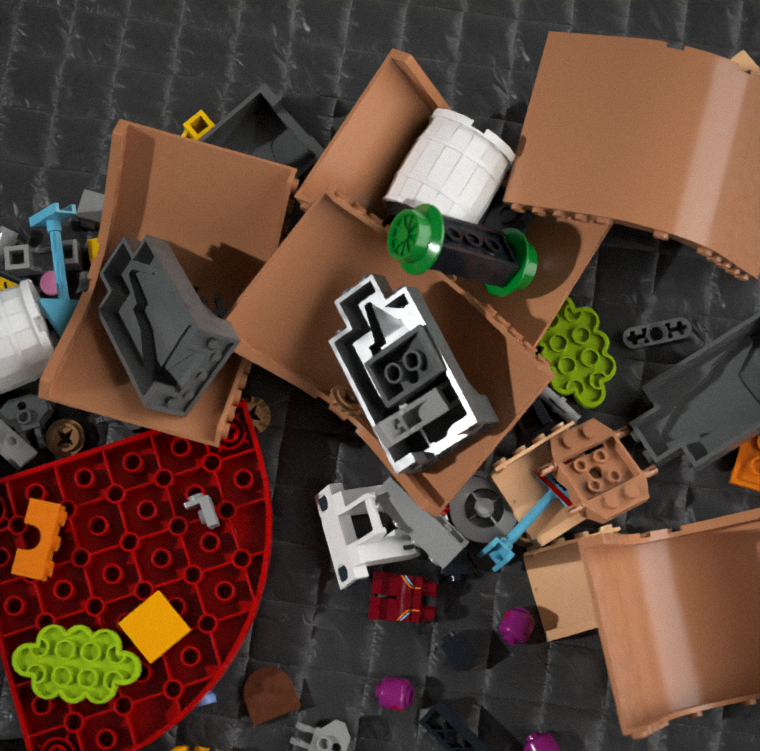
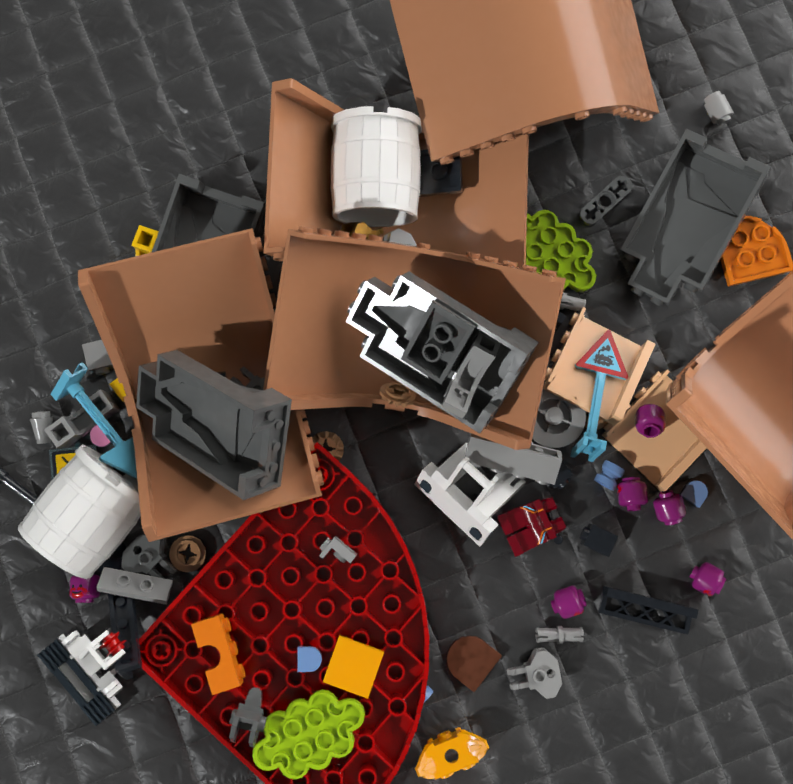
camera: 30 degrees left, 5 degrees up
(30, 614) = (248, 717): none -> dark grey hinge
(117, 595) = (308, 658): none -> medium blue tile
(367, 719) = (559, 634): none -> light grey pin
(438, 242) = (401, 224): brick -> none
(506, 595) = (610, 473): none -> medium blue wheel
(545, 660) = (669, 507): none -> magenta head
(571, 567) = (650, 420): none -> magenta head
(579, 662) = (695, 493): none -> medium blue tile
(621, 480) = (631, 323): nougat piece -> none

